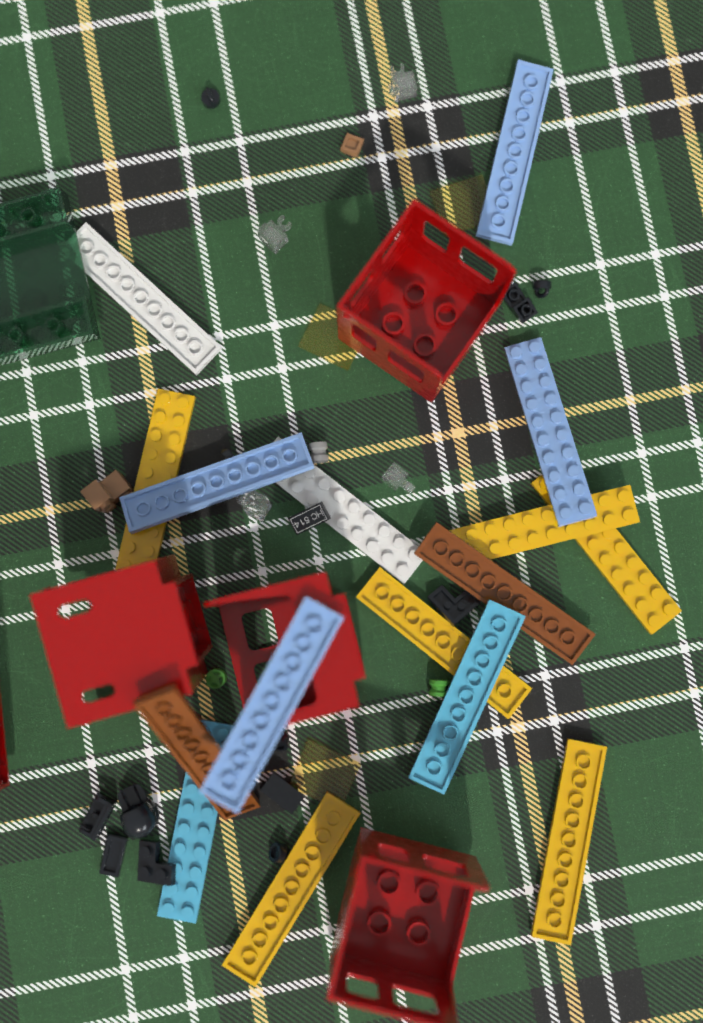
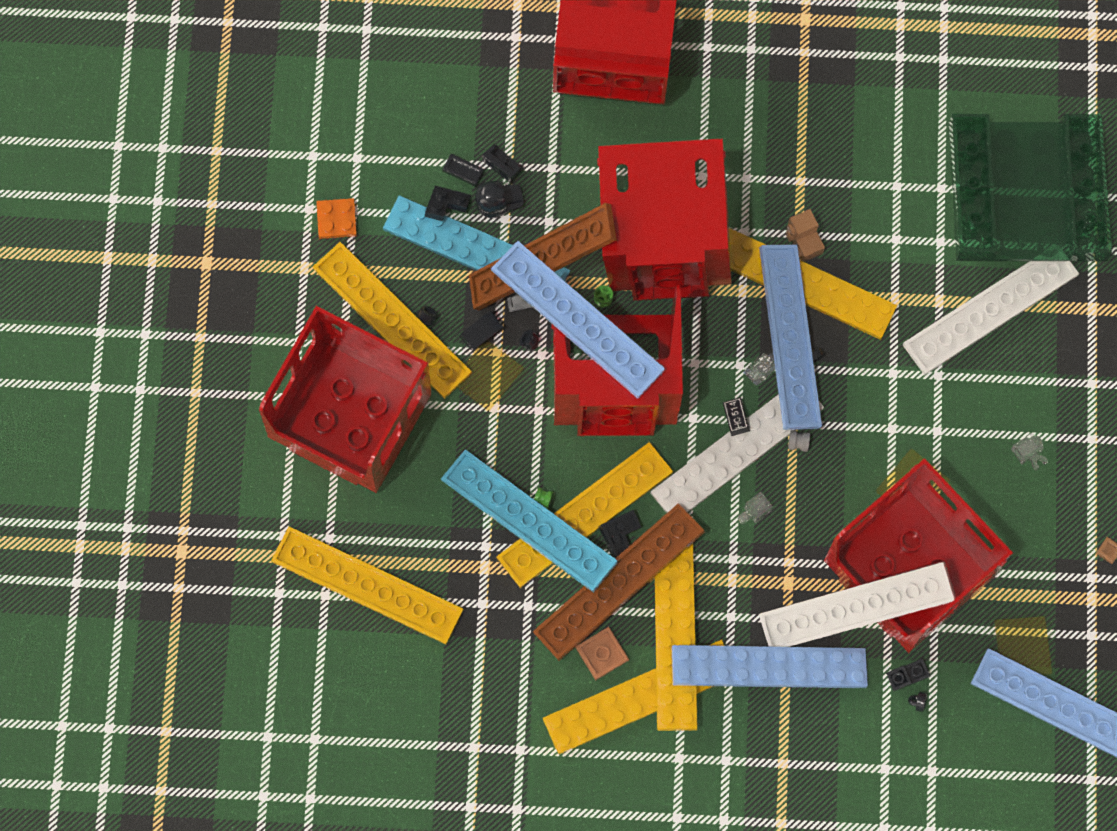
camera: 100 degrees right, 10 degrees down
(196, 974) = (336, 218): none -> orange plate
(479, 353) = (858, 606): none -> white plate
(573, 592) = (602, 653): none -> nougat tile

